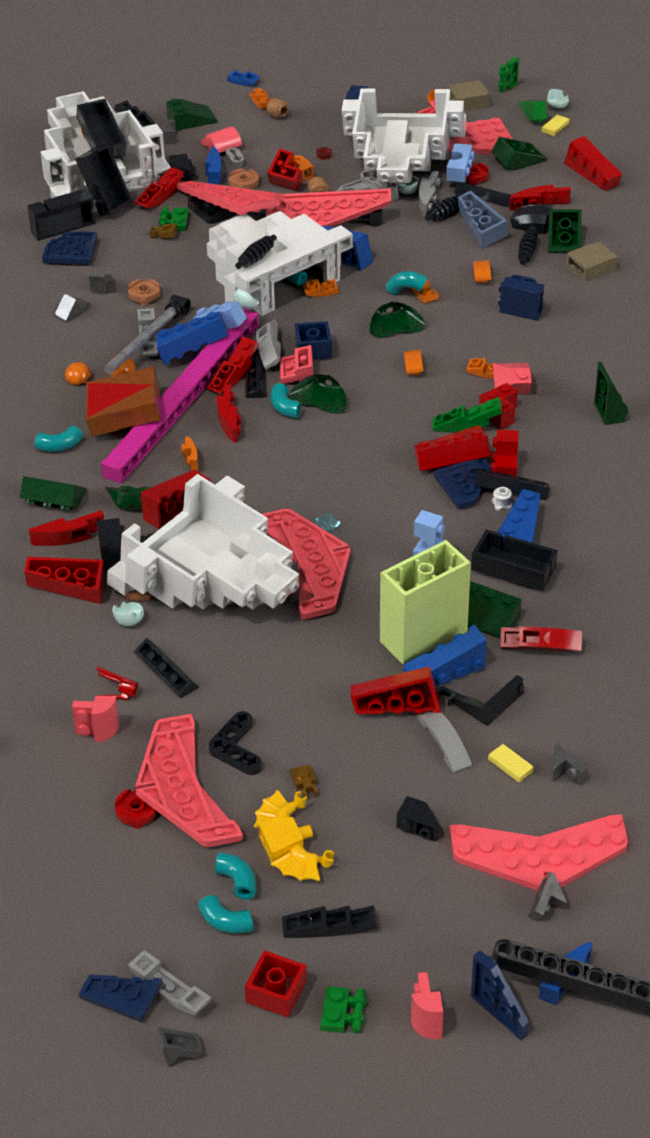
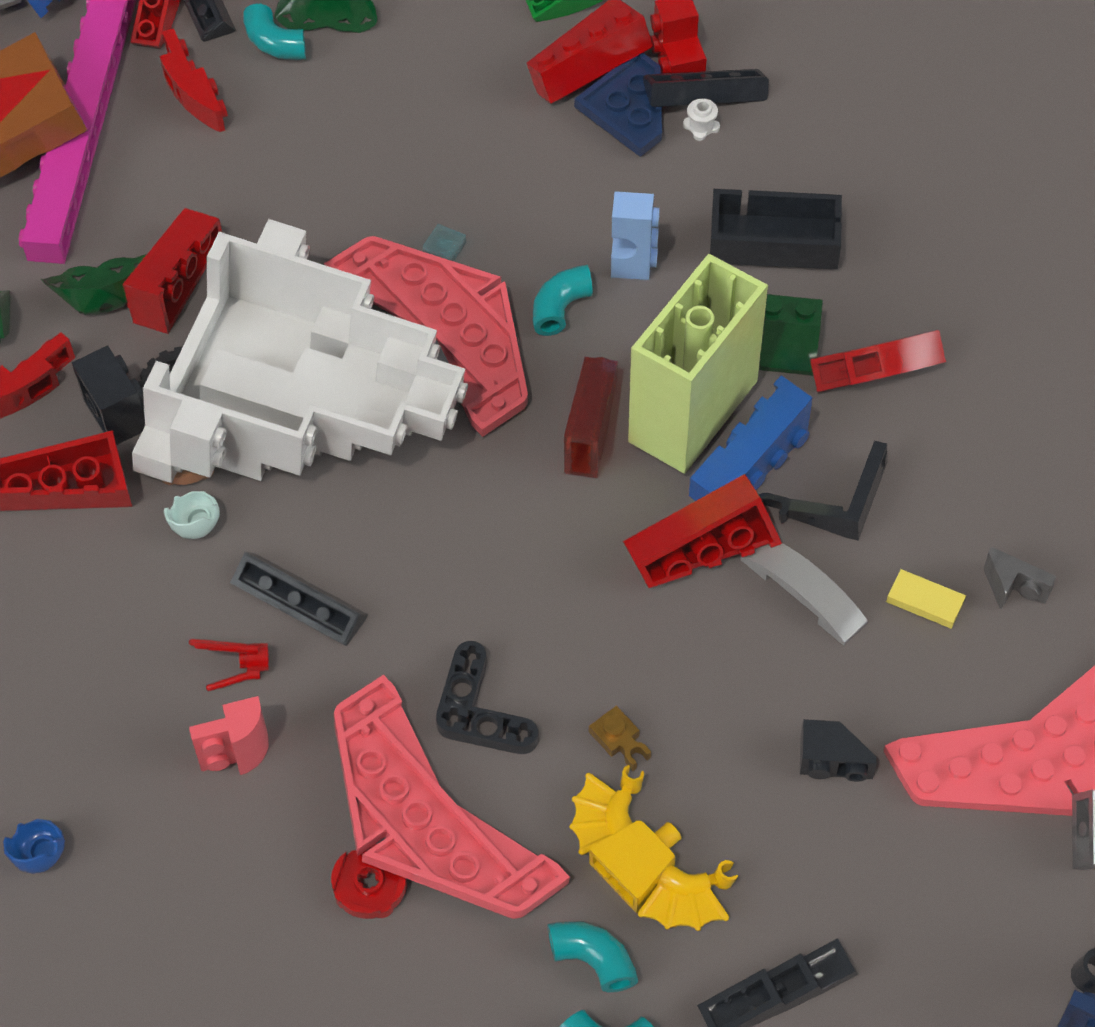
camera: 20 degrees left, 15 degrees up
(190, 452) = (162, 178): orange slope -> none
(359, 626) = (589, 417): none -> clear red slope
(375, 562) = (555, 296): none -> teal cylinder
(522, 517) = (756, 151): blue wedge -> none

